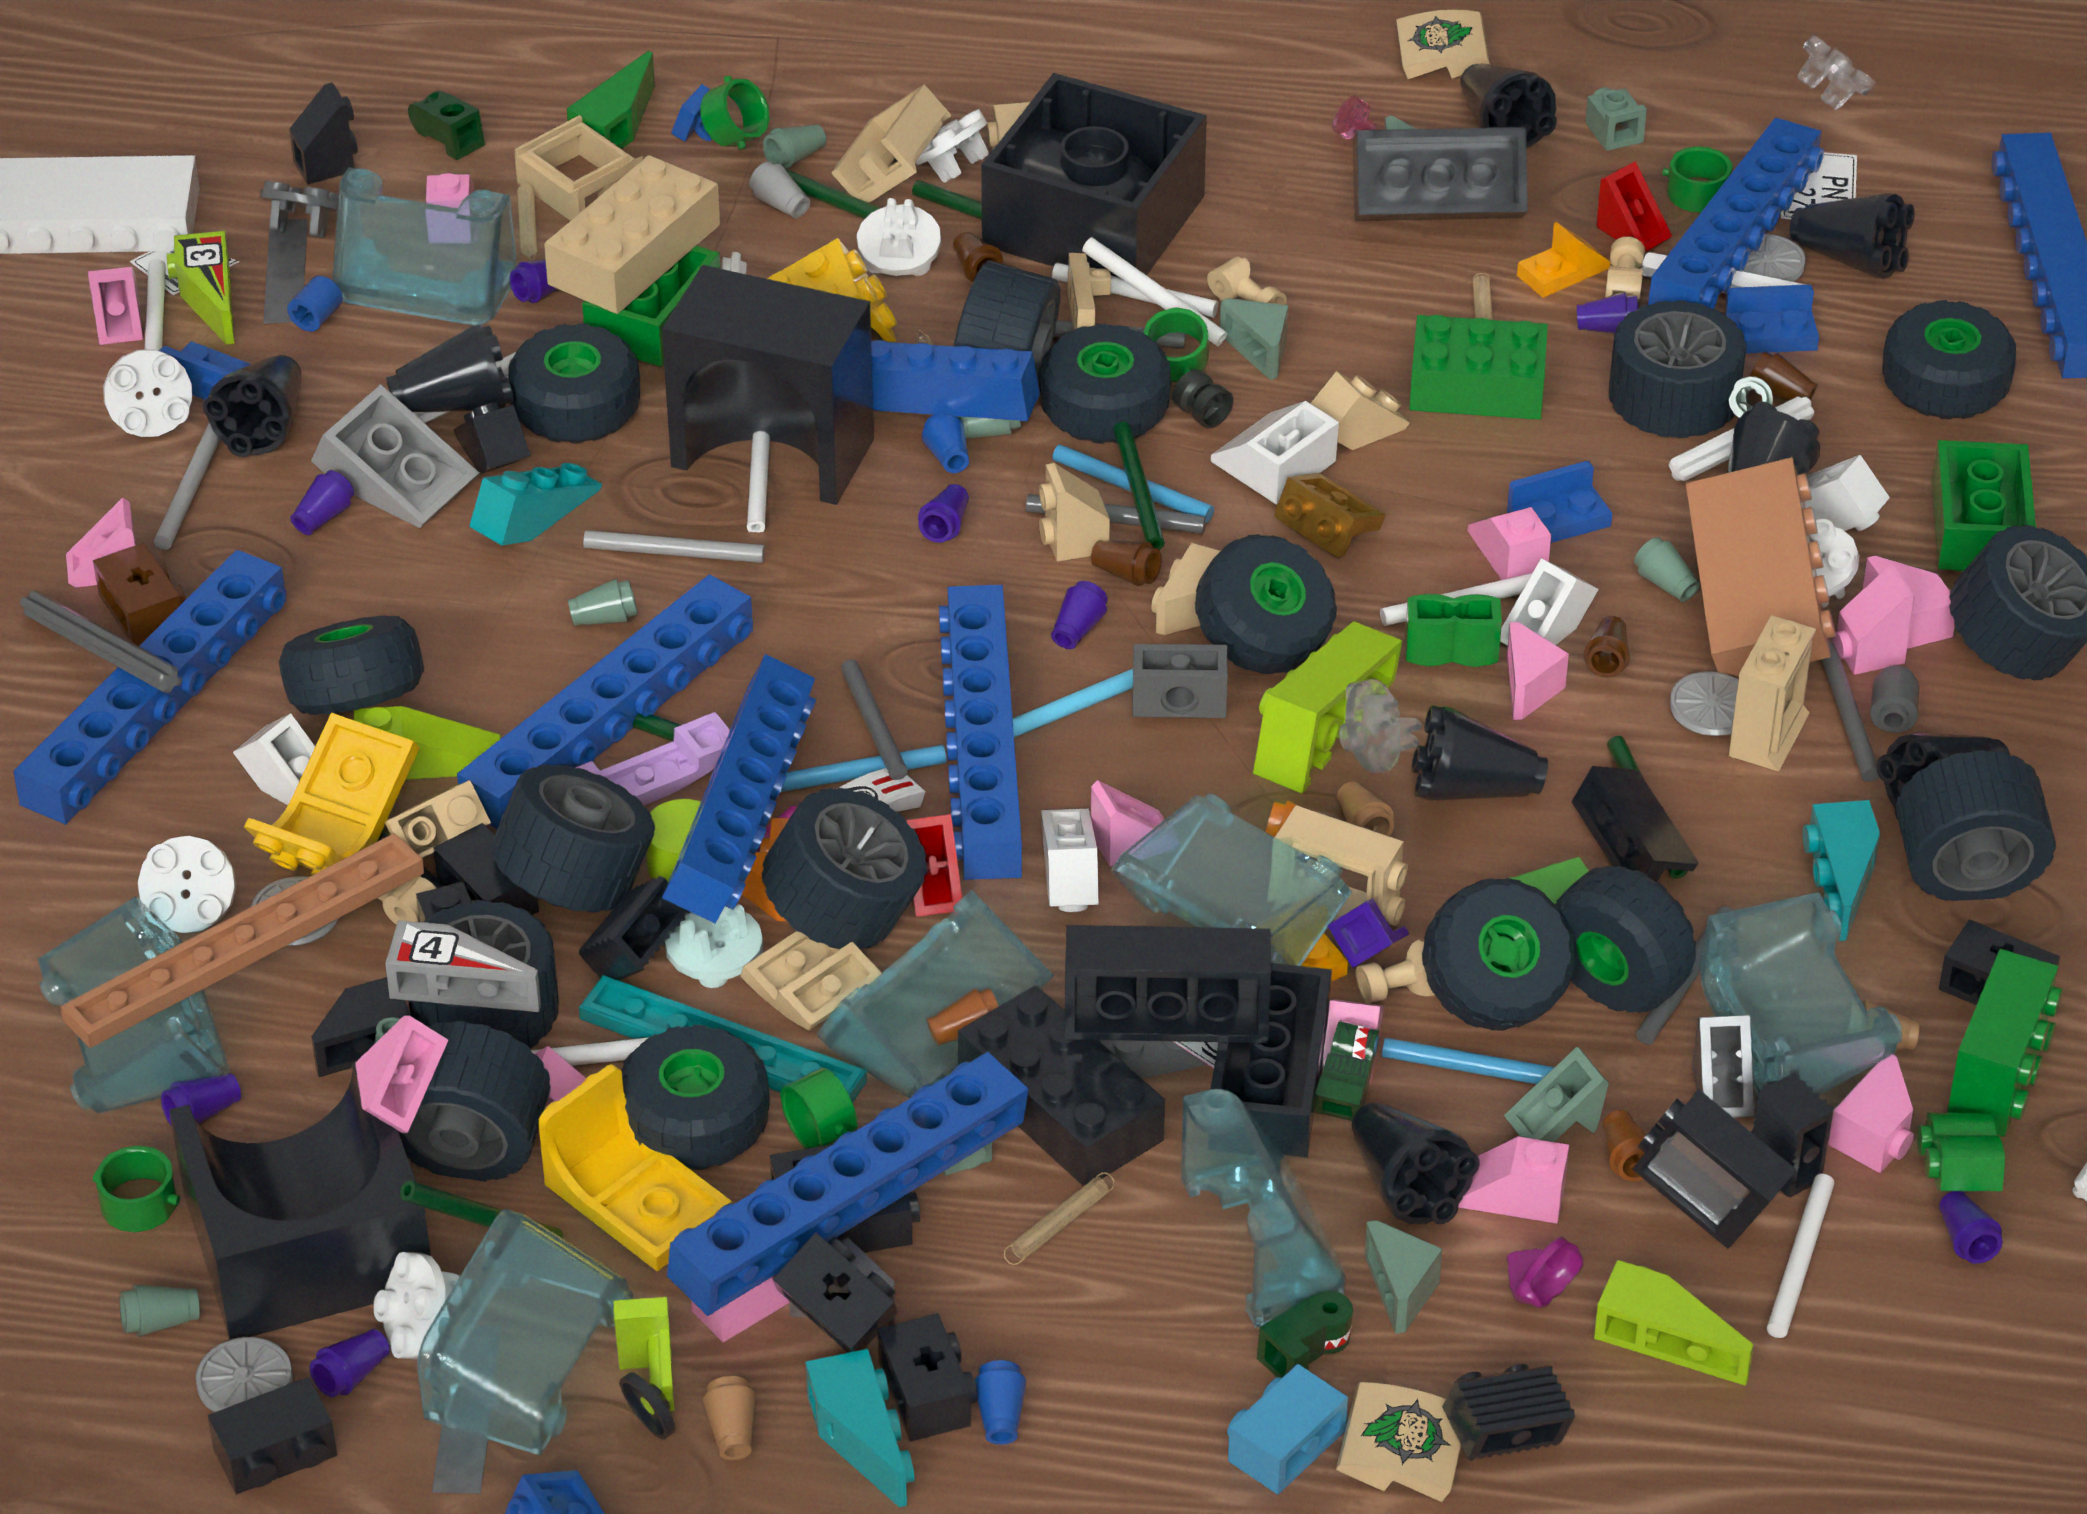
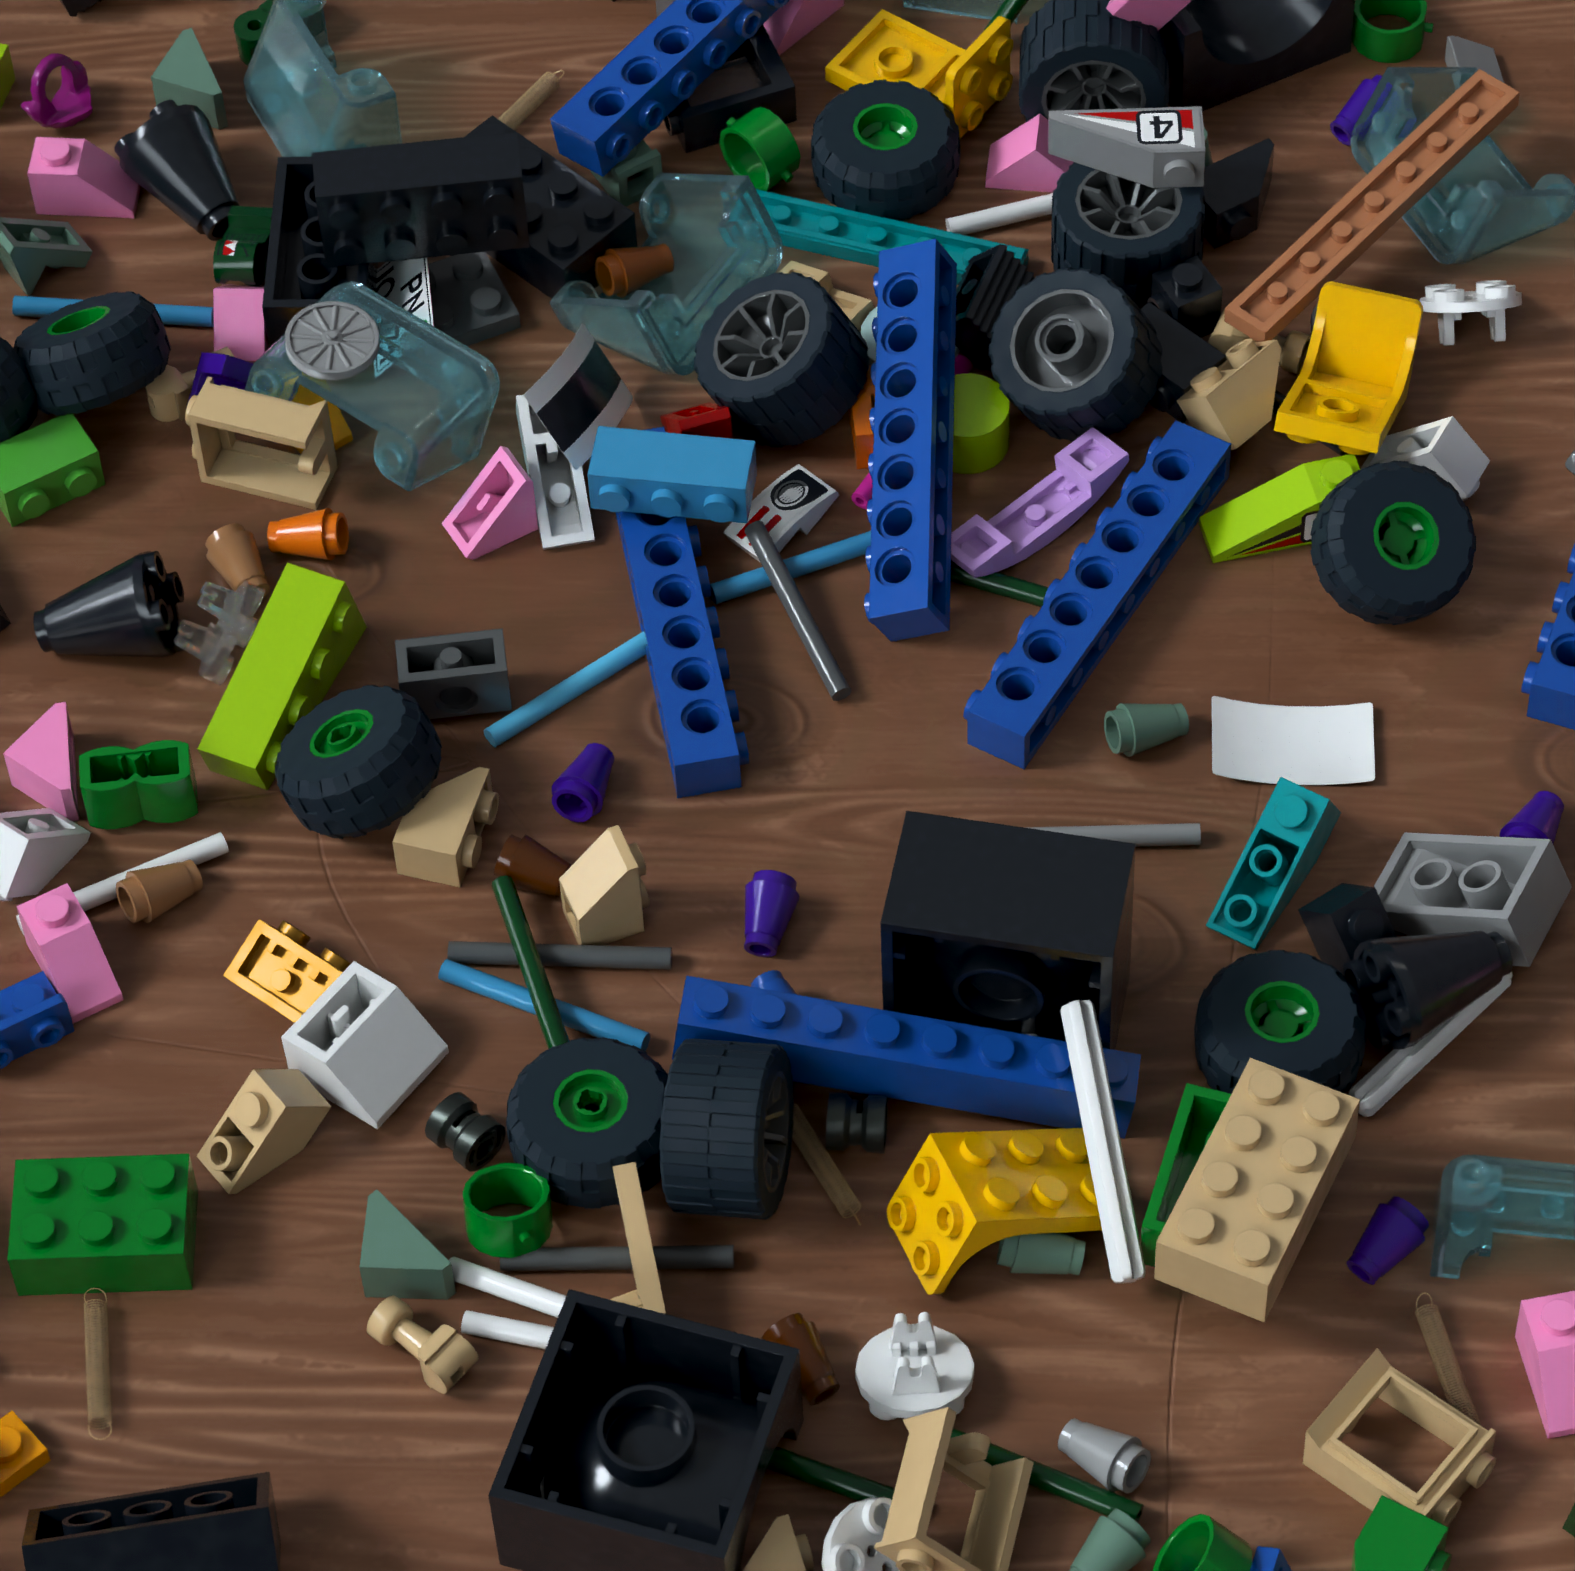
camera: 175 degrees right, 10 degrees up
(72, 1142) = (1467, 53): none -> light grey slope
(483, 598) = (1293, 742): none -> white sticker
(964, 772) = (672, 474): none -> dark azure brick
(1023, 879) = (578, 397): none -> sticker
(1264, 862) = (332, 340): none -> light grey wheel
(1440, 575) = (155, 890): none -> medium nougat cone

